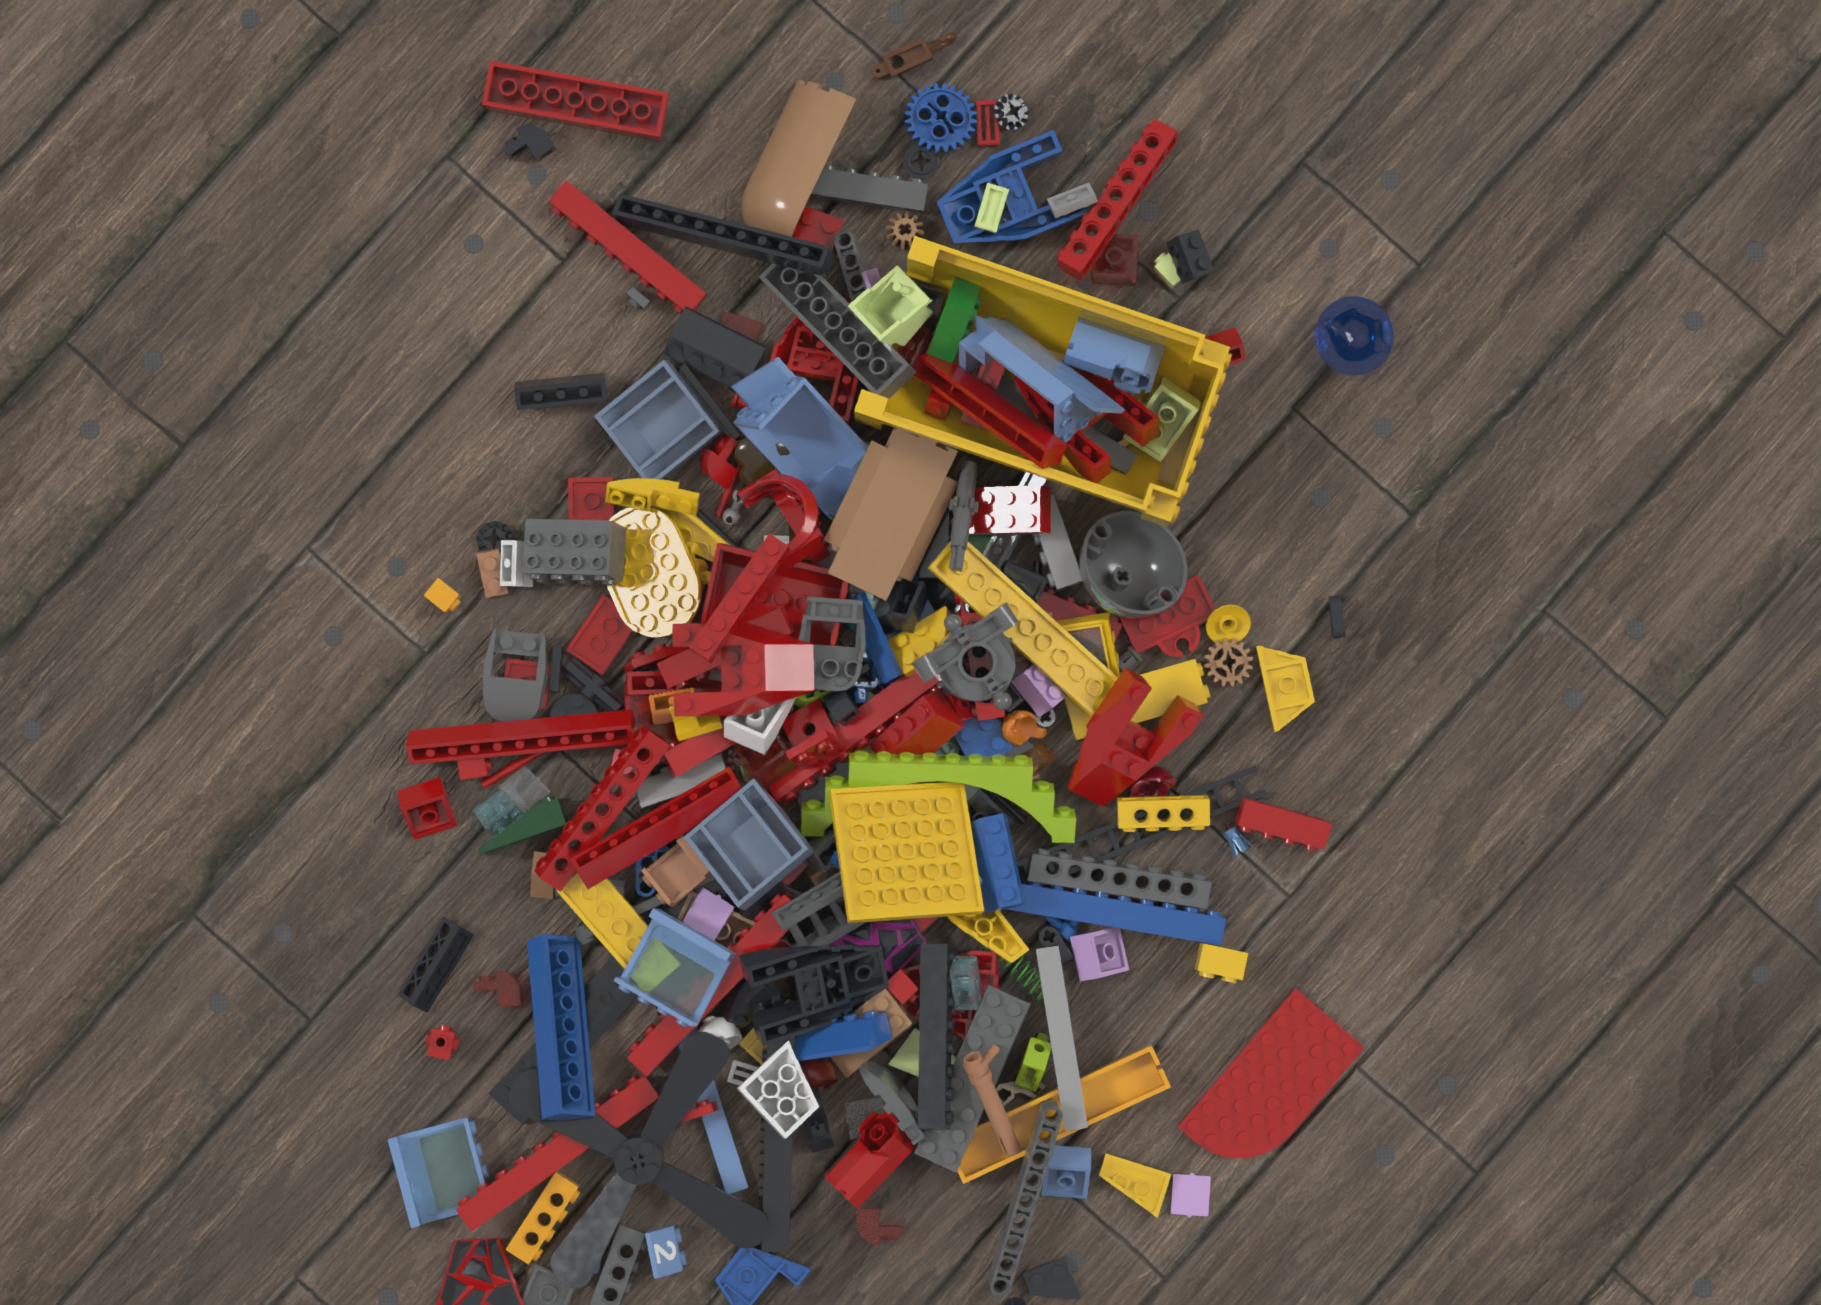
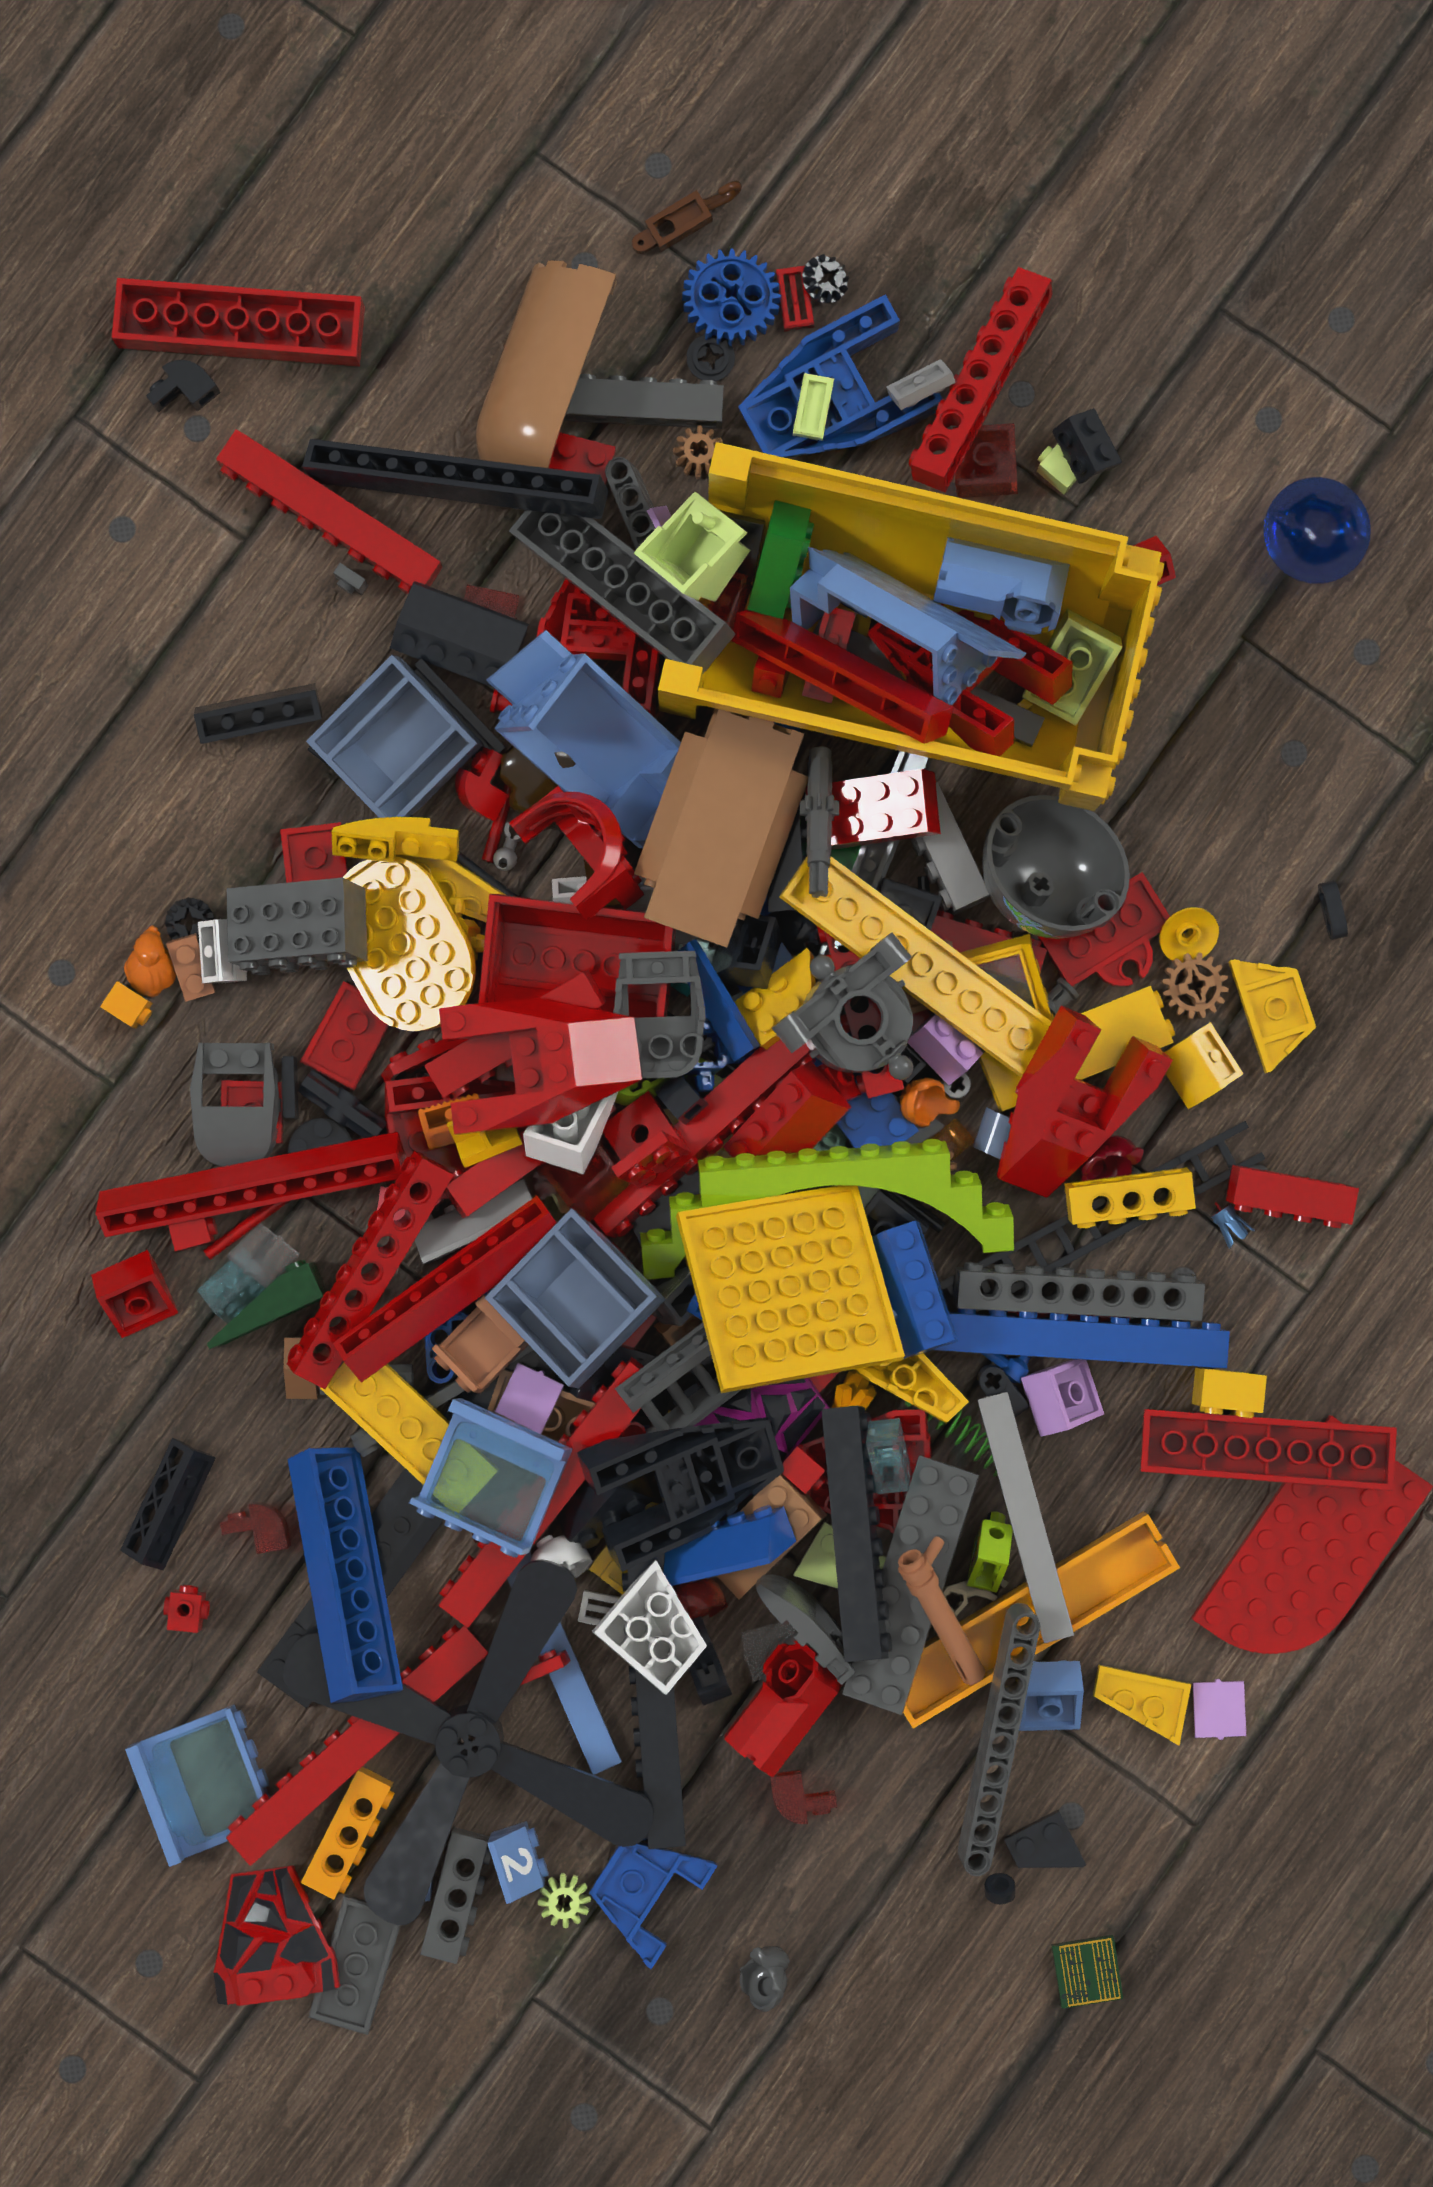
camera: 10 degrees left, 0 degrees up
(462, 568) = (150, 965): none -> orange hair
(688, 1279) = (576, 1901): none -> yellowish green gear
(740, 598) = (527, 963): red brick -> none
(947, 934) = (854, 1392): none -> light orange rock
(1067, 755) = (992, 1133): none -> sand blue hat
(1226, 721) = (1201, 1066): none -> yellow brick
(1244, 1007) = (1268, 1449): none -> red brick

